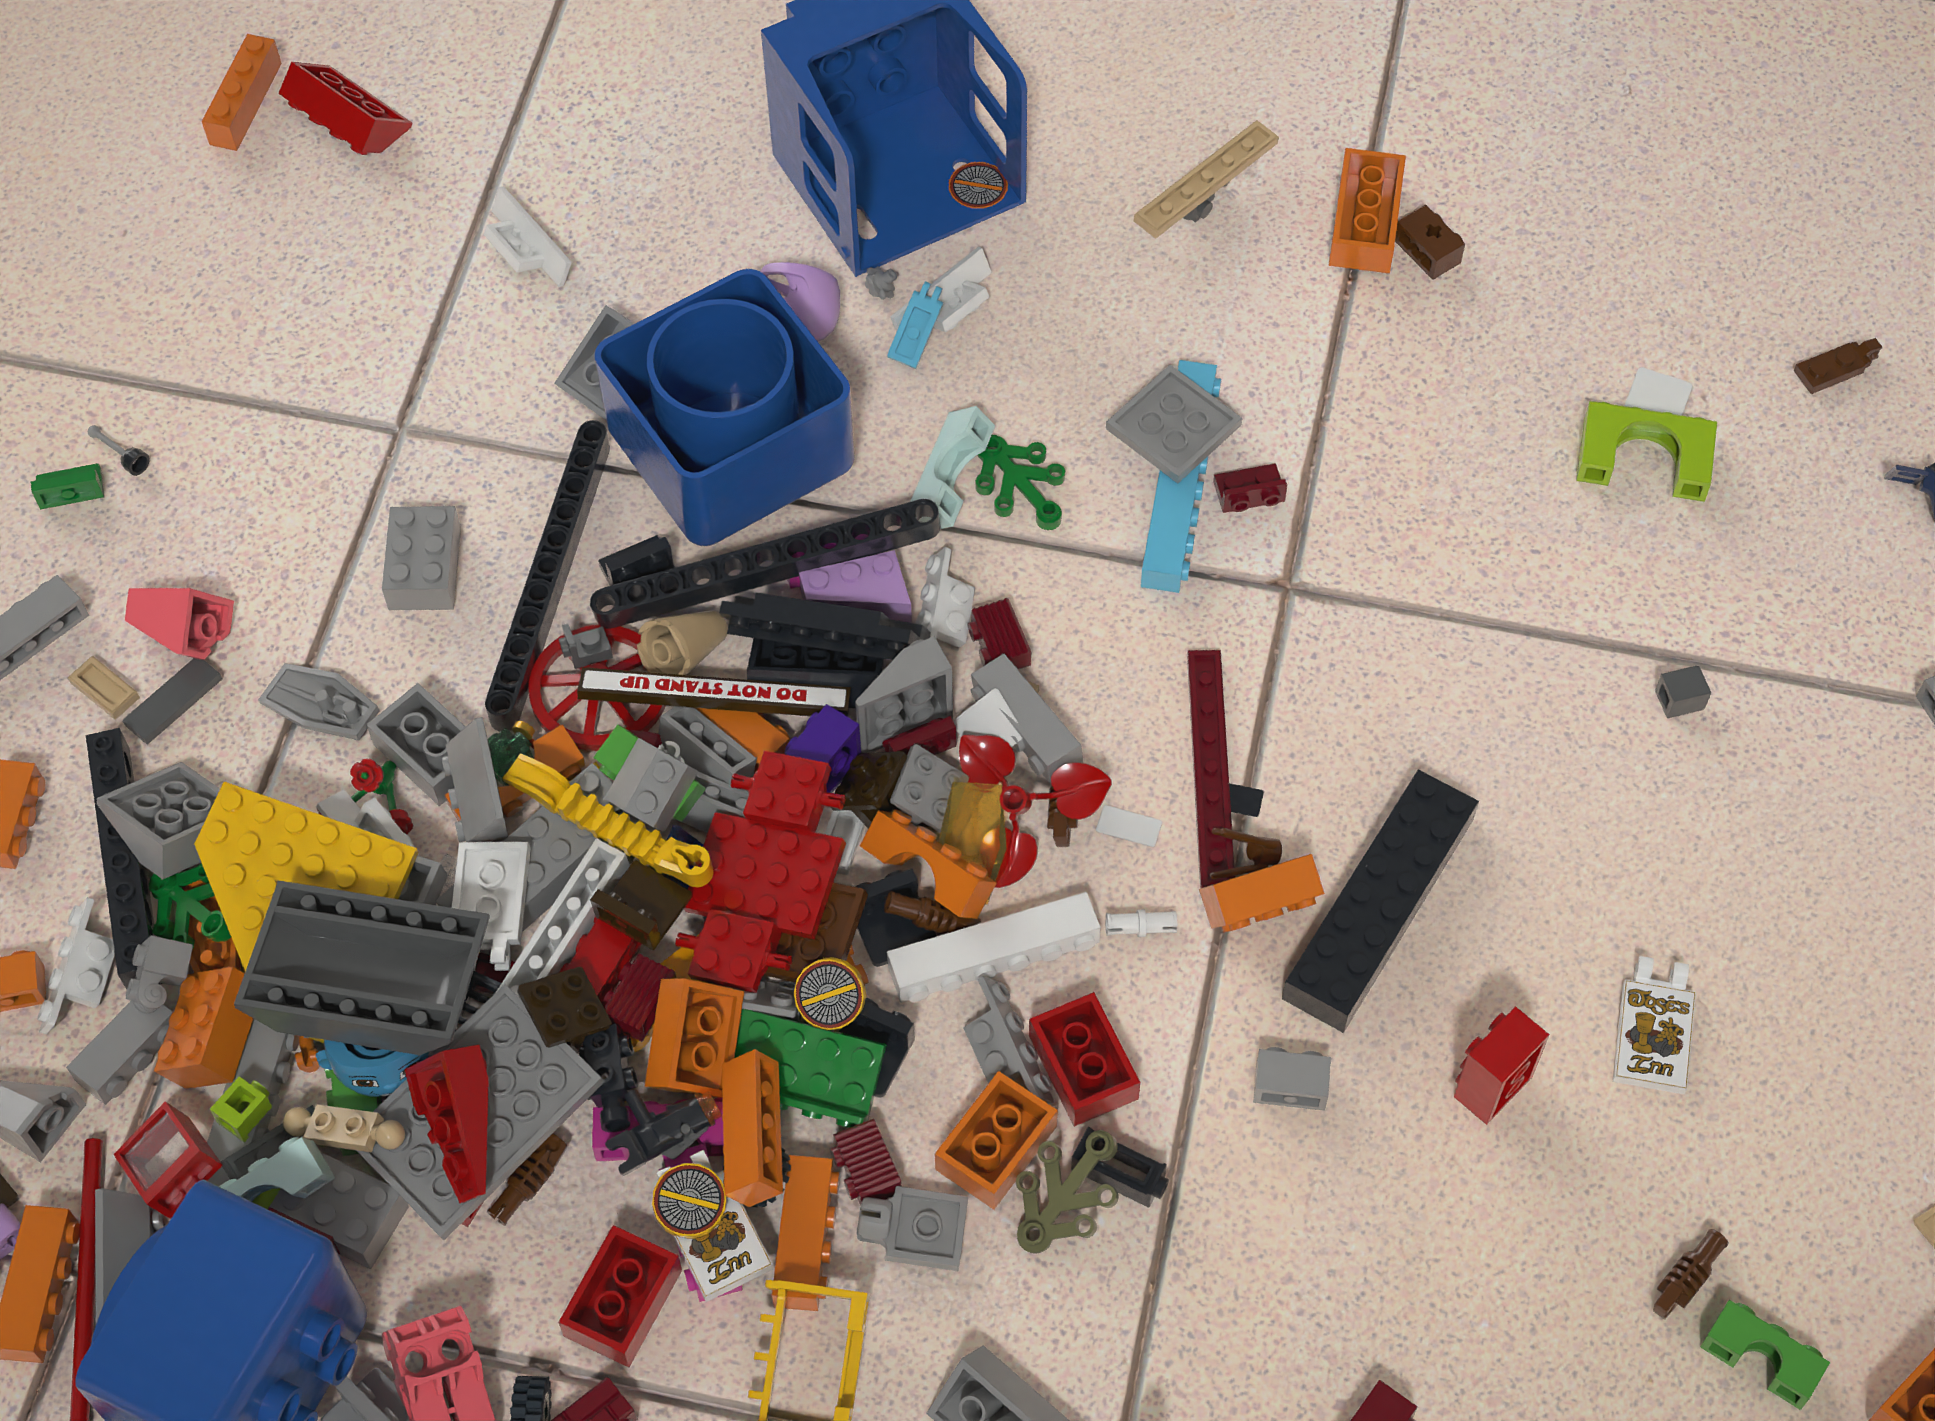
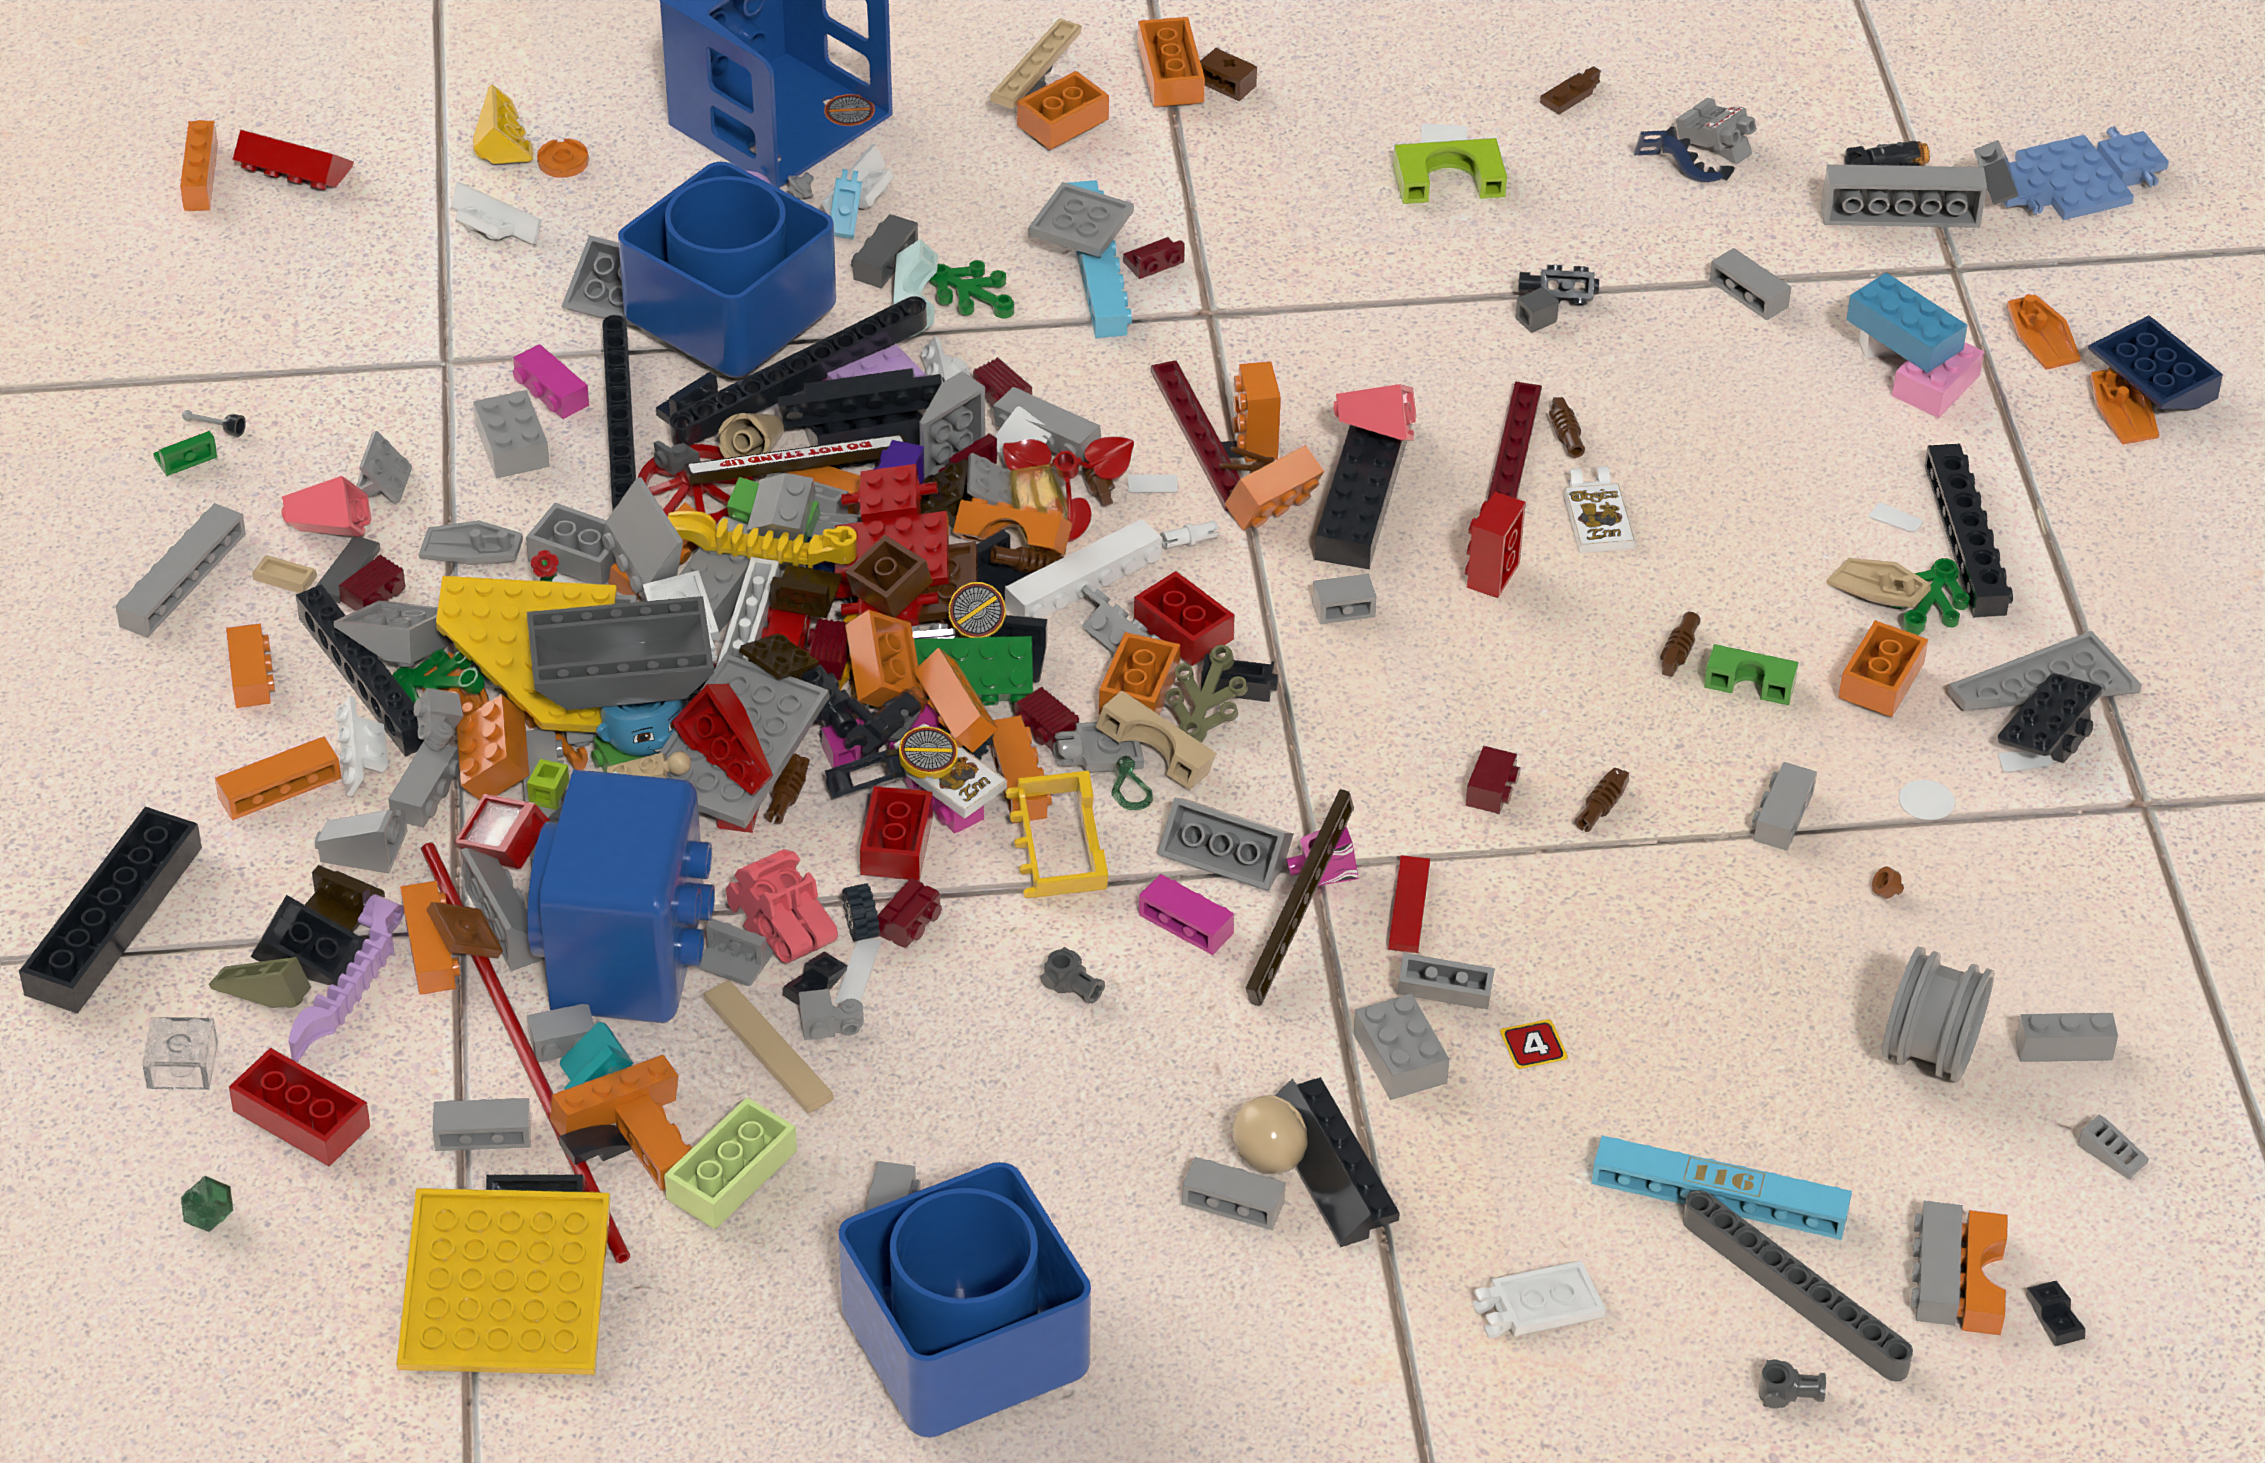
camera: 20 degrees left, 15 degrees down
(63, 1294) = (464, 930): none -> dark orange tile
(185, 735) = (371, 583): none -> dark red brick
(261, 573) = (383, 469): none -> light grey bracket
(494, 493) = (550, 381): none -> dark pink brick
(581, 122) = (498, 133): none -> yellow wedge
(589, 1199) = (840, 781): none -> black window
(637, 174) = (563, 158): none -> orange tile
(729, 931) = (889, 576): none -> reddish brown brick
(931, 1276) = (1125, 767): none -> clear green piece
(953, 388) = (877, 257): none -> dark grey brick
(956, 1208) = (1130, 720): none -> tan arch
(1216, 250) = (1062, 110): none -> orange brick
(1277, 772) = (1257, 409): none -> orange brick
(1423, 823) = (1379, 409): none -> coral slope
(1577, 908) = (1515, 439): none -> dark red tile
(1660, 883) = (1566, 427): none -> reddish brown hinge
(1730, 667) = (1566, 282): none -> black brick

